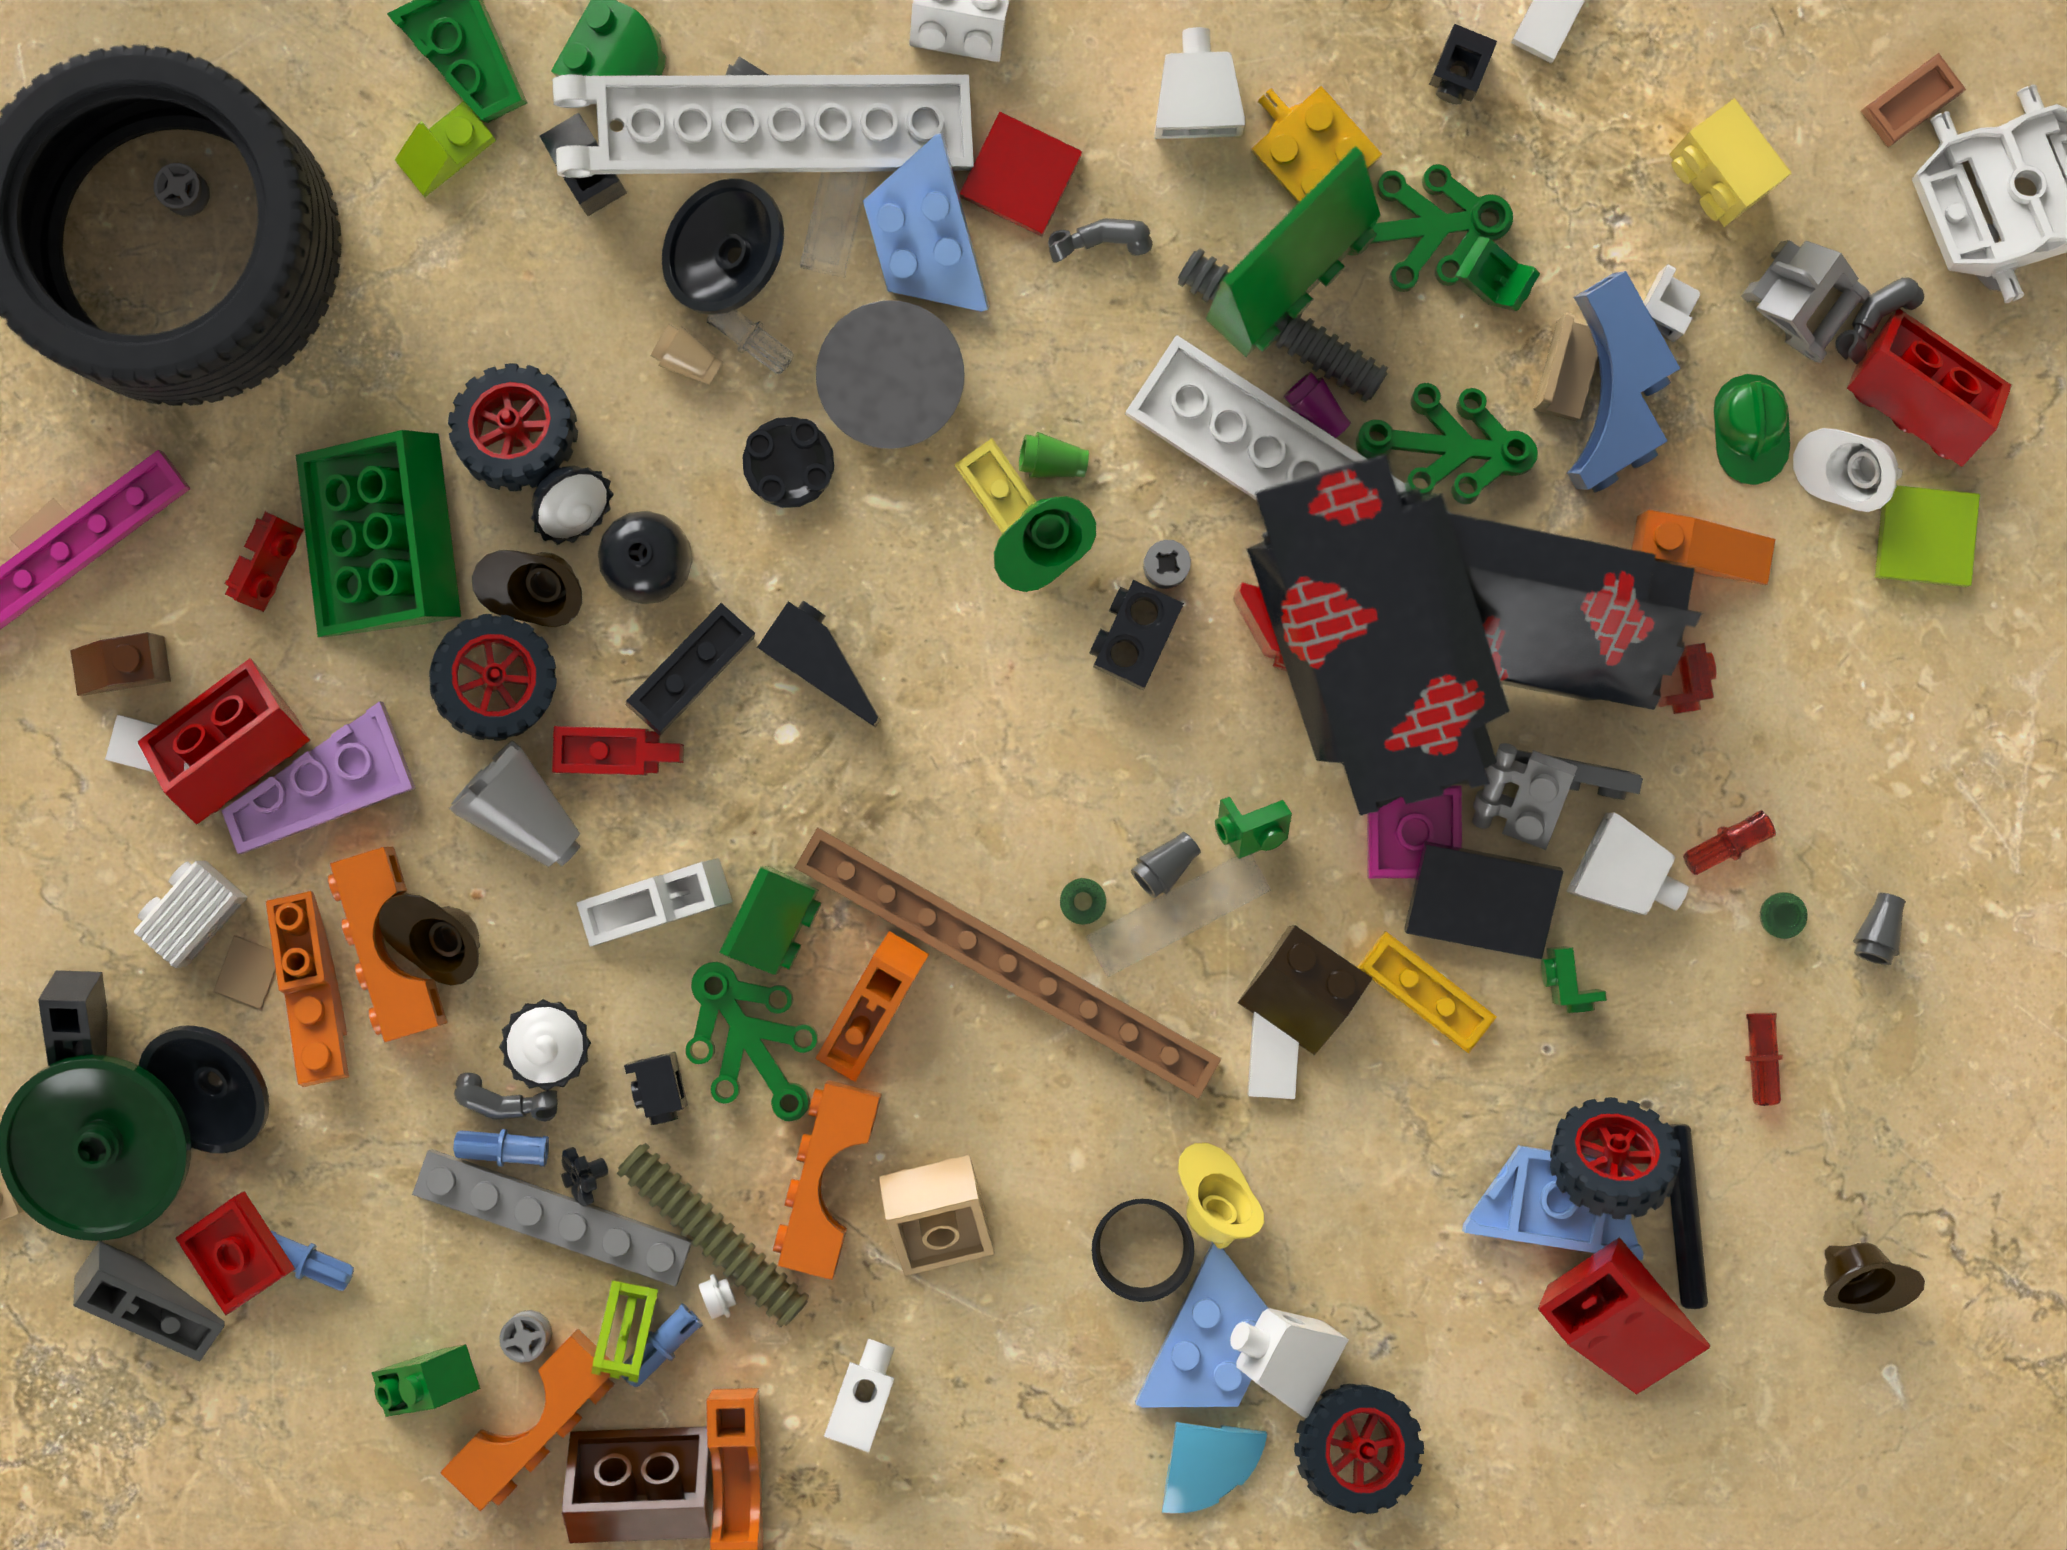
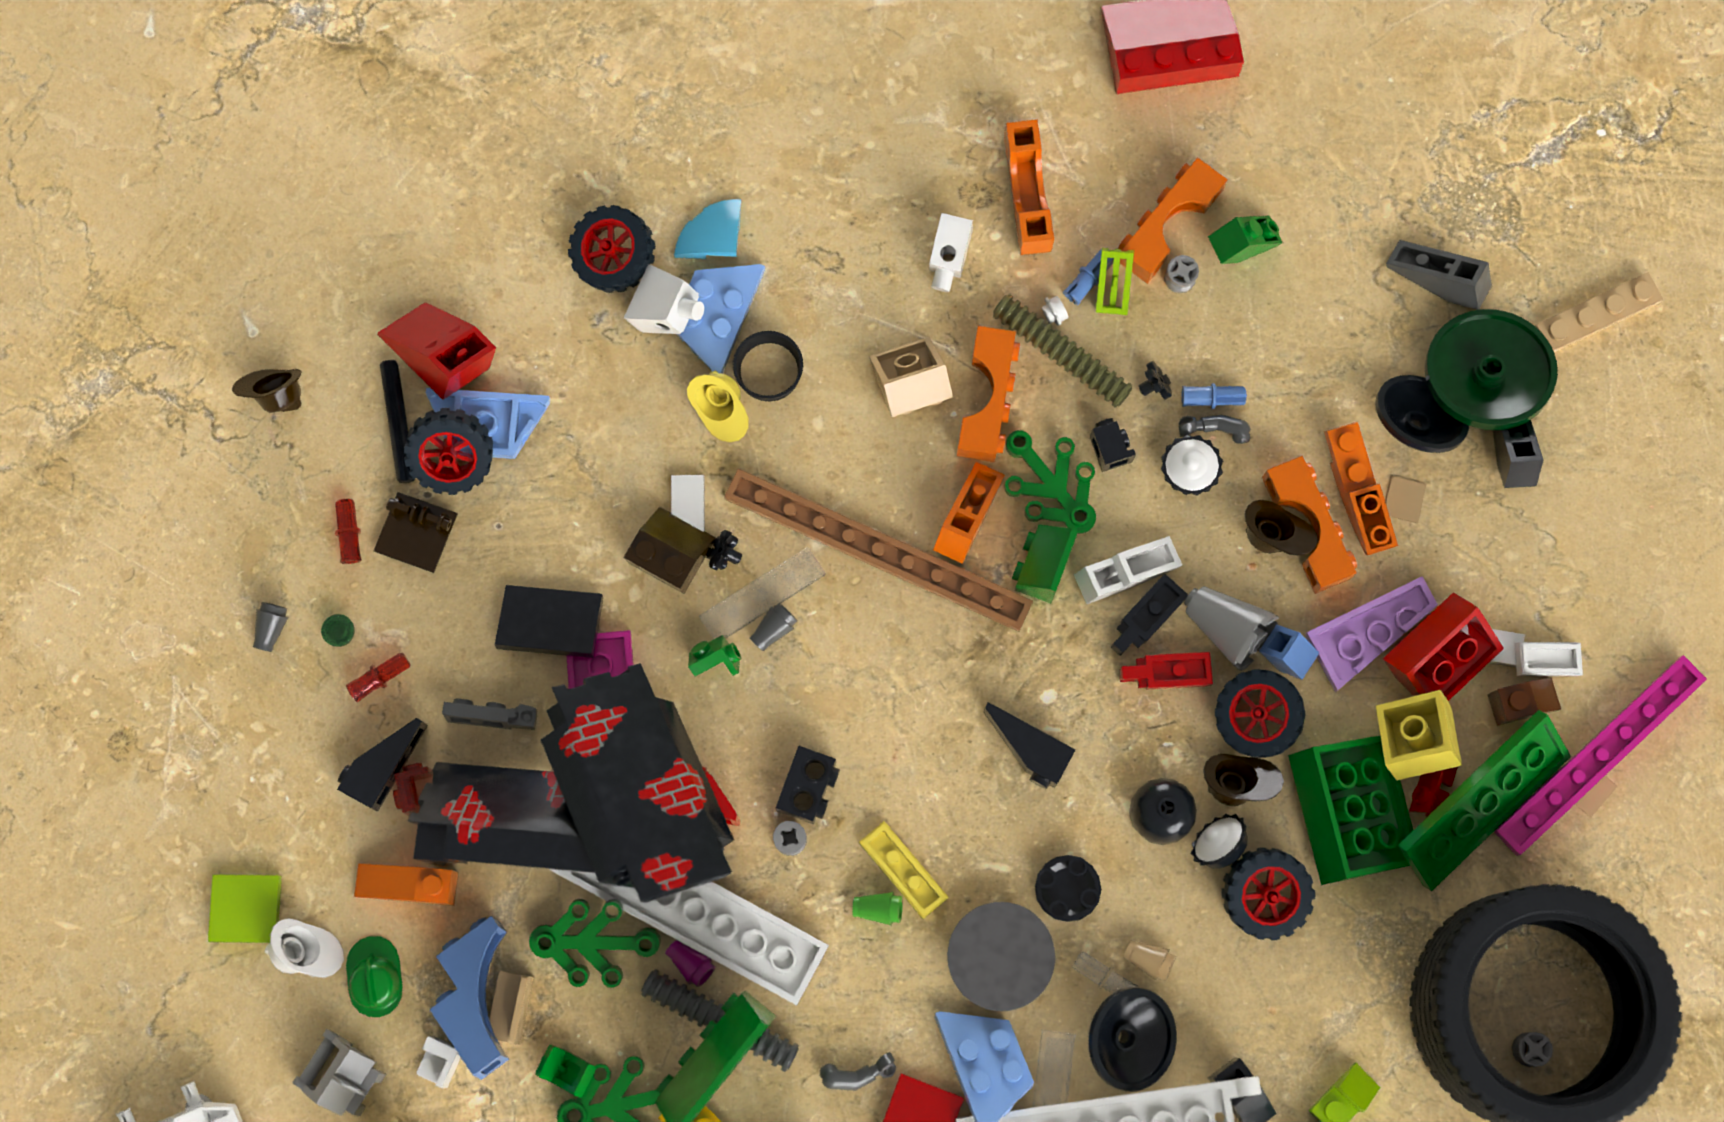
camera: 175 degrees right, 10 degrees down
(76, 720) = (1548, 659): none -> white tile
(188, 913) = (1449, 533): white brick -> none
(194, 528) = (1484, 800): none -> green plate
(235, 1253) = (1385, 309): red tile -> none
(274, 622) = (1418, 735): none -> light yellow brick
(315, 1264) = (1336, 309): medium blue axle -> none
(440, 760) = (1289, 651): none -> medium blue brick
(552, 1217) = (1173, 353): light grey plate -> none
(631, 835) = (1149, 614): none -> black hinge
(638, 1485) = (1094, 185): reddish brown slope -> none
(690, 669) = (1121, 733): black hinge -> none
(1044, 543) = (879, 841): green piece -> none
(1083, 916) = (829, 587): clear green plate -> none
(1228, 979) = (723, 551): none -> black plant
(1427, 992) = (584, 556): yellow tile -> none
(1538, 801) = (514, 692): light grey plate -> none
(1560, 974) = (492, 574): green bracket -> none
(1626, 869) = (450, 650): white torso -> none
(1667, 1049) = (415, 532): none -> dark brown hinge
(1741, 704) = (373, 772): none -> black slope
(1897, 294) = (276, 1081): dark grey arm -> none
(1930, 388) = (245, 1016): red slope -> none

